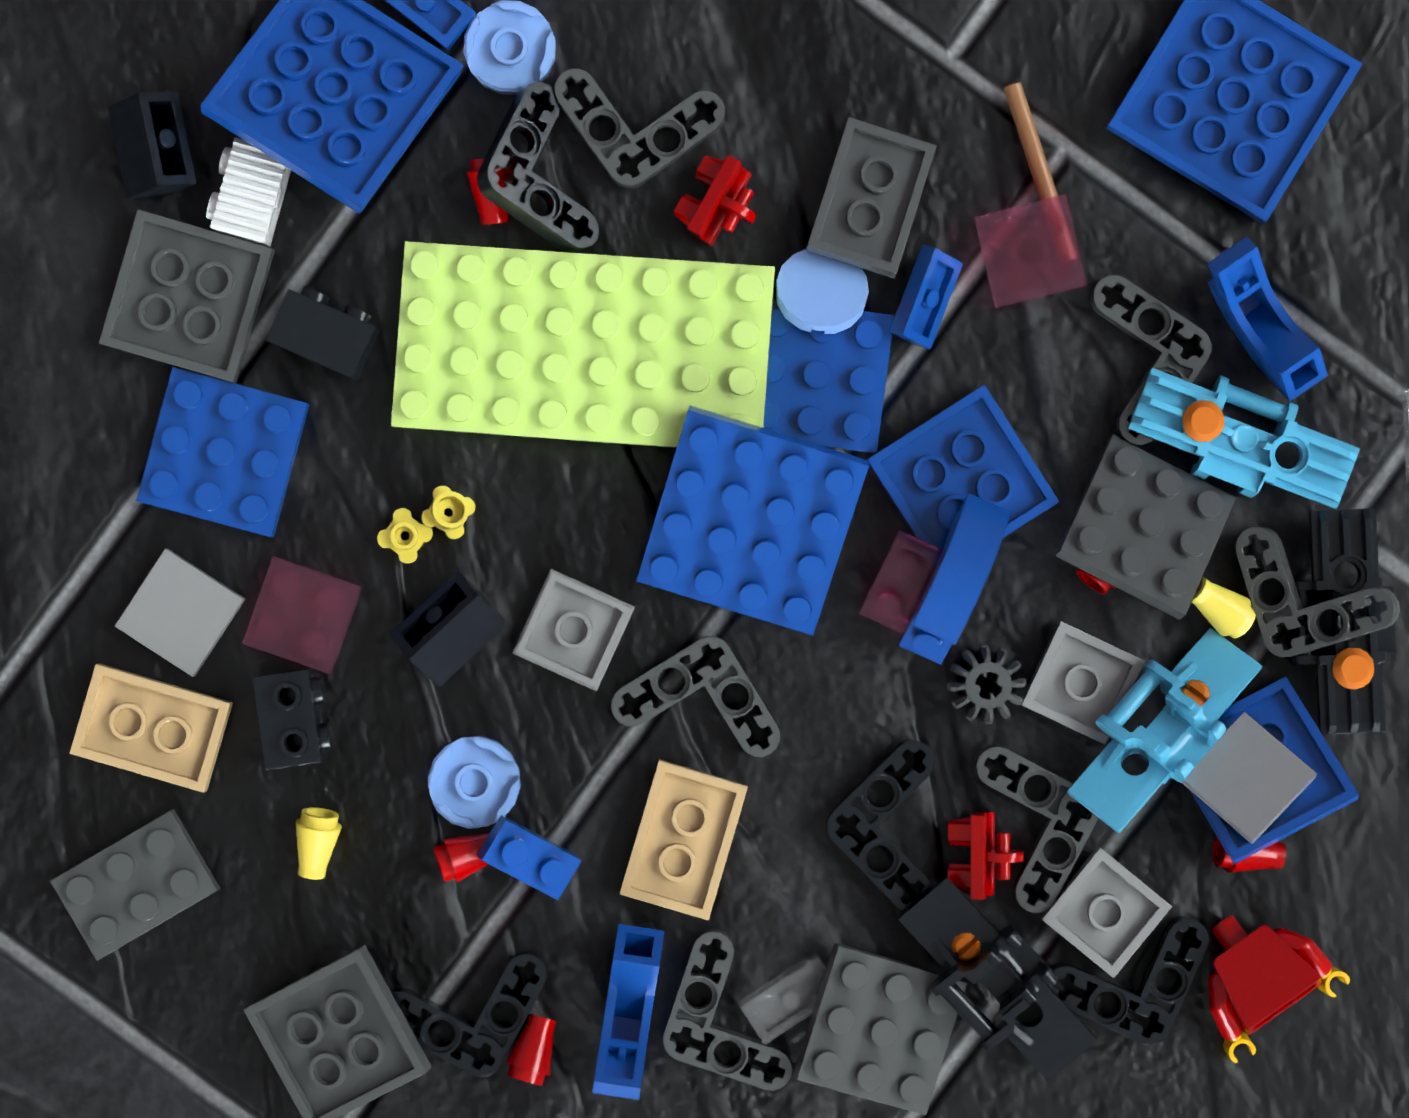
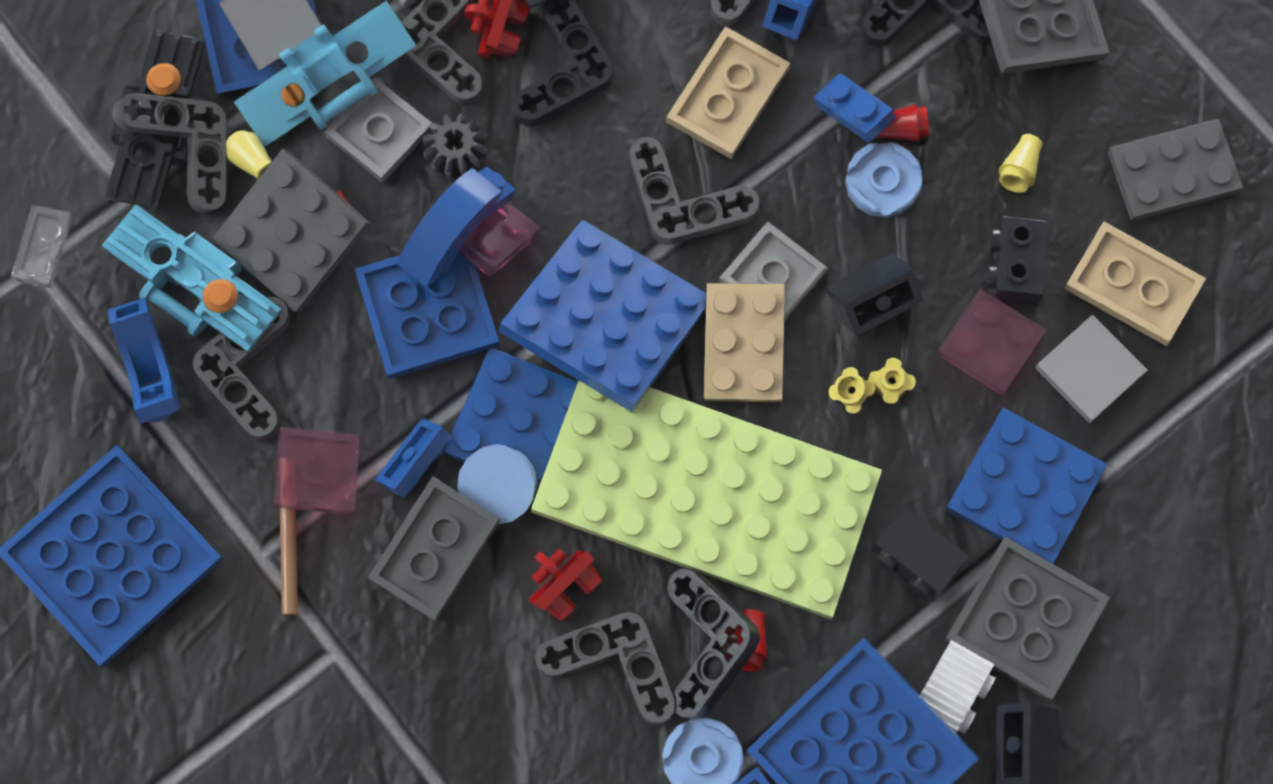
camera: 165 degrees left, 15 degrees down
(585, 534) = (744, 342): none -> tan plate

